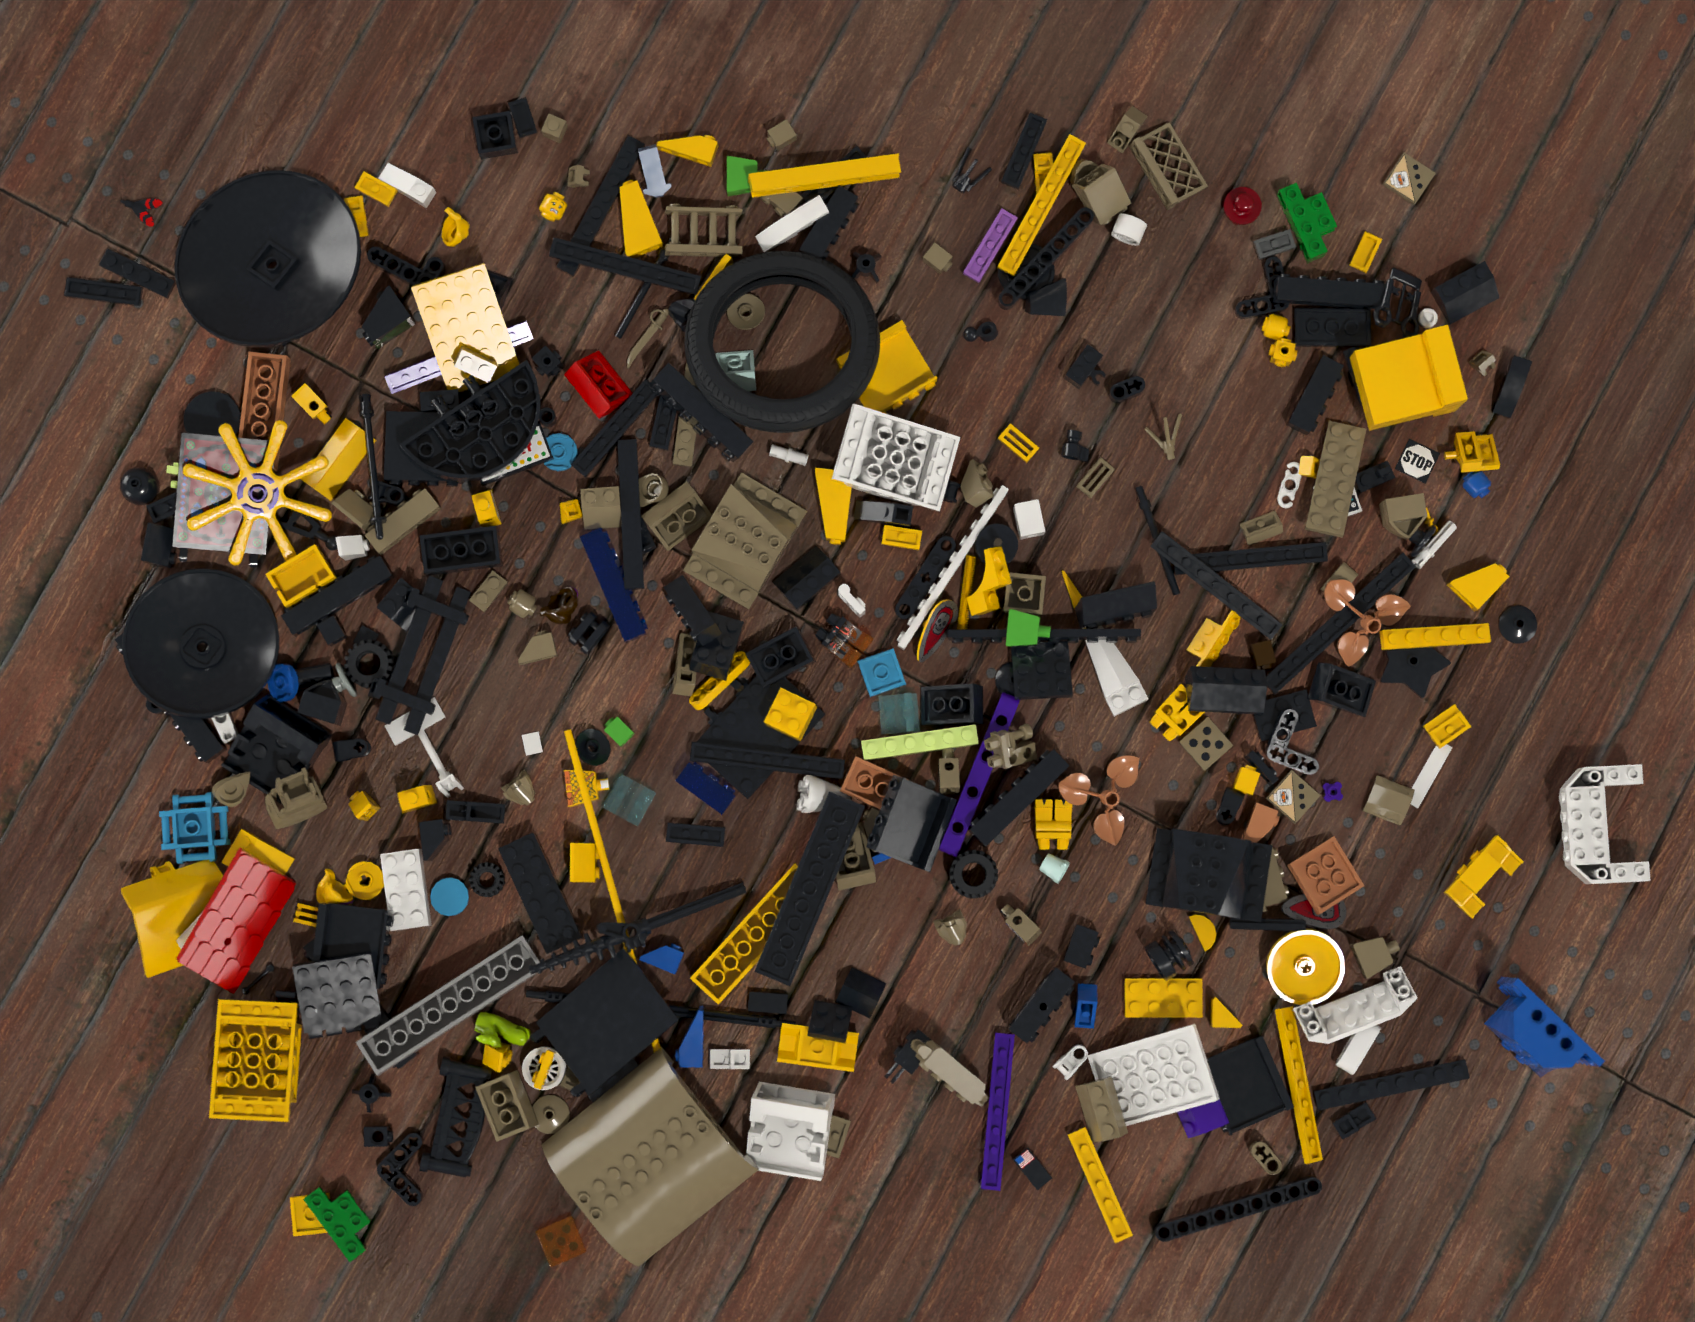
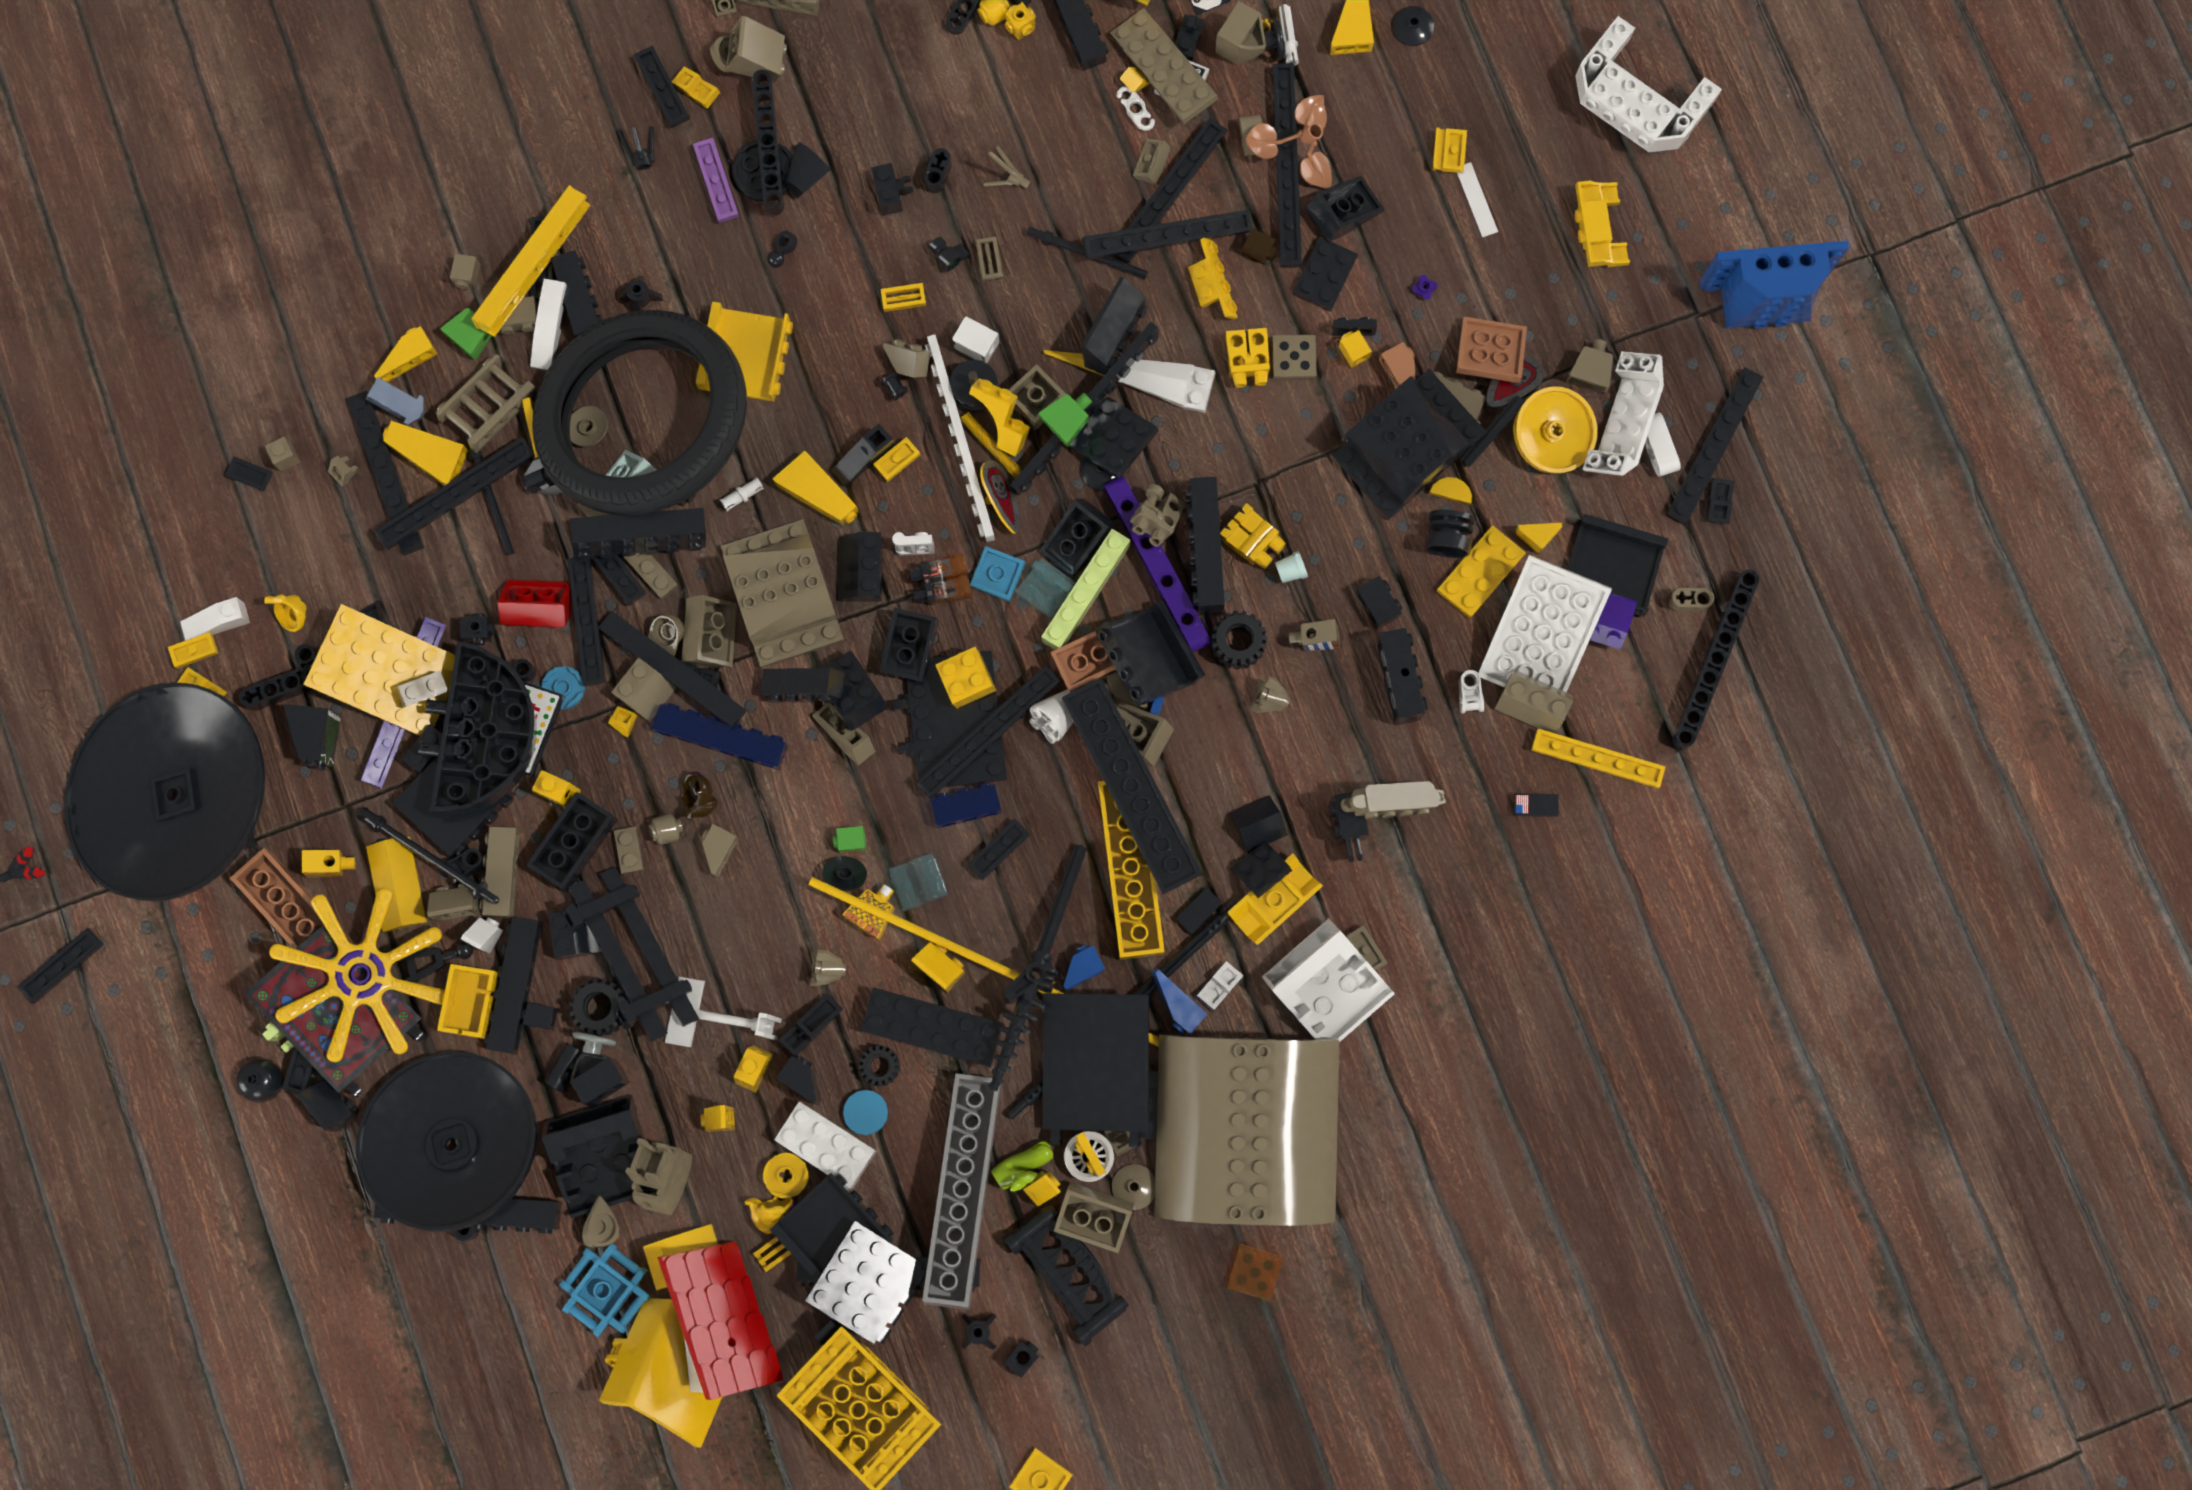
camera: 50 degrees left, 5 degrees down
(137, 273) = (73, 922): black plate -> none
(209, 411) = (251, 959): black tile -> none
(225, 727) = (540, 1184): white leg -> none
(270, 968) = (789, 1329): black hinge -> none
(283, 683) = (547, 1098): blue tile -> none
(340, 1219) = (1068, 1455): green piece -> none
(347, 749) = (657, 1092): black piece -> none
(365, 634) = (570, 988): black tile -> none
(395, 1165) = (1062, 1364): black beam -> none
(495, 135) = (241, 507): black brick -> none
(532, 743) = (794, 925): white sticker -> none
(553, 206) = (348, 512): yellow head -> none
(577, 634) = (735, 804): black brick -> none
(648, 334) = (531, 524): dark tan sword -> none
(700, 699) = (884, 746): yellow beam -> none
(895, 458) = (825, 401): white wedge -> none
(933, 566) = (944, 455): black piece -> none
(938, 259) = (688, 231): dark tan brick -> none
(948, 780) = (1134, 588): dark tan torso -> none
(997, 1111) = (1461, 792): dark purple plate -> none
(1041, 205) = (720, 108): yellow plate -> none
(1075, 790) = (1241, 494): nougat plant -> none
(1085, 1006) = (1433, 641): blue slope -> none
(1129, 229) = (805, 56): white piece -> none
(1226, 690) = (1263, 298): black slope -> none
(1230, 803) = (1362, 377): black piece -> none
(1281, 745) = (1349, 294): beam -> none
(1292, 797) = (1401, 323): tile -> none
(1298, 1085) = (1651, 520): yellow plate -> none
(1389, 800) = (1472, 247): dark tan slope -> none
(1413, 675) = (1370, 146): black plate -> none
(1435, 636) = (1366, 95): yellow plate -> none

